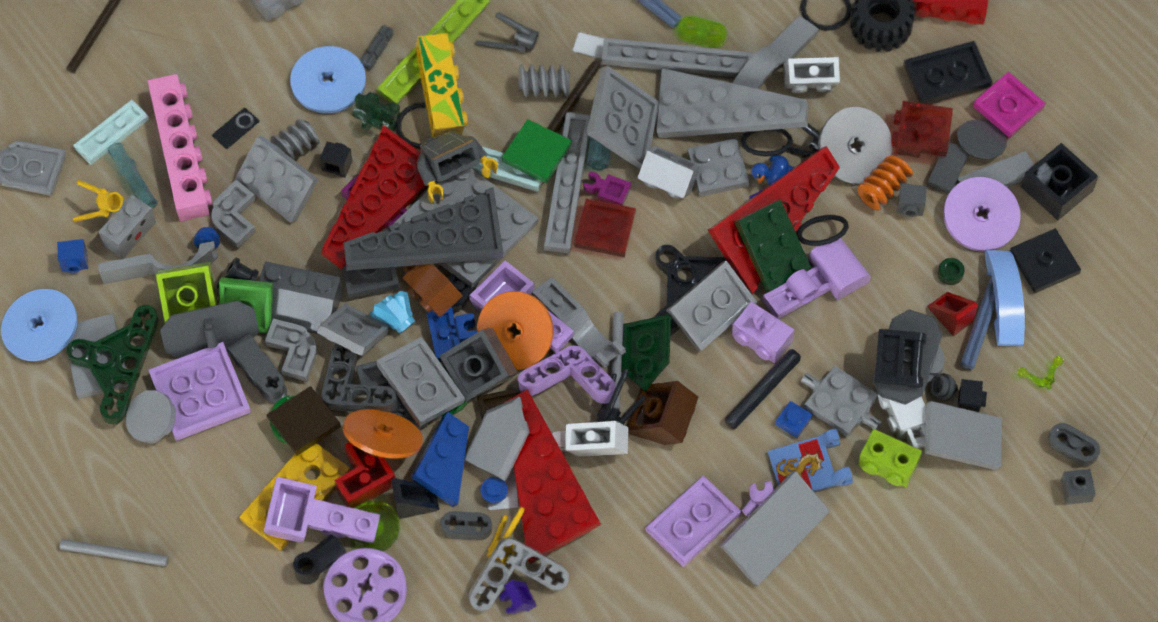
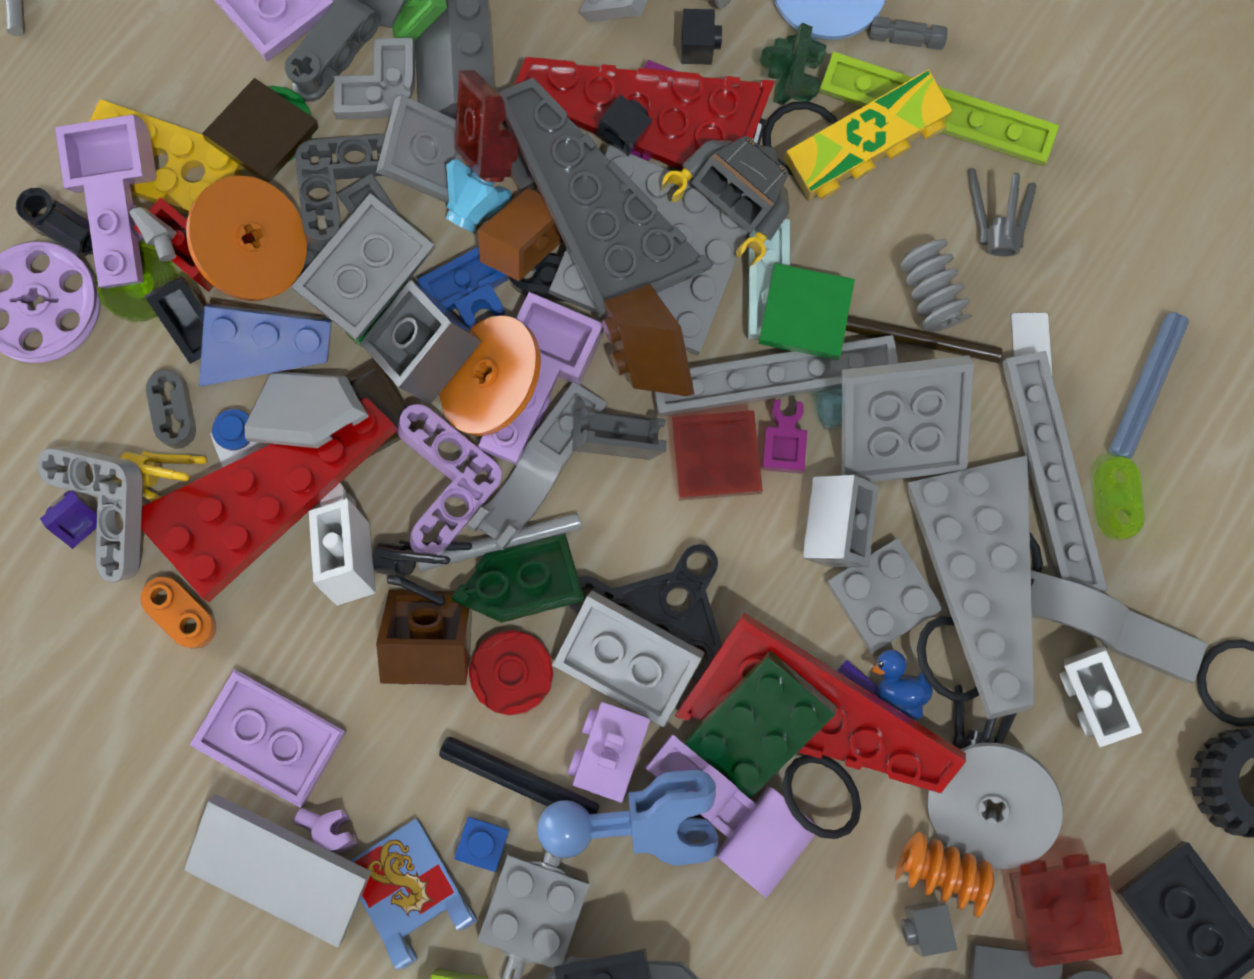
camera: 70 degrees right, 15 degrees up
(358, 485) = (155, 232): none -> light grey bar
(361, 283) = (479, 131): none -> clear red plate
(388, 207) = (624, 124): none -> black plate
(531, 232) = (647, 343): none -> reddish brown slope
(575, 273) = (617, 434): none -> dark grey hinge
(599, 552) = (177, 611): none -> orange plate
(700, 374) = (511, 673): none -> red tile
(809, 316) = (655, 821): none -> medium blue piece

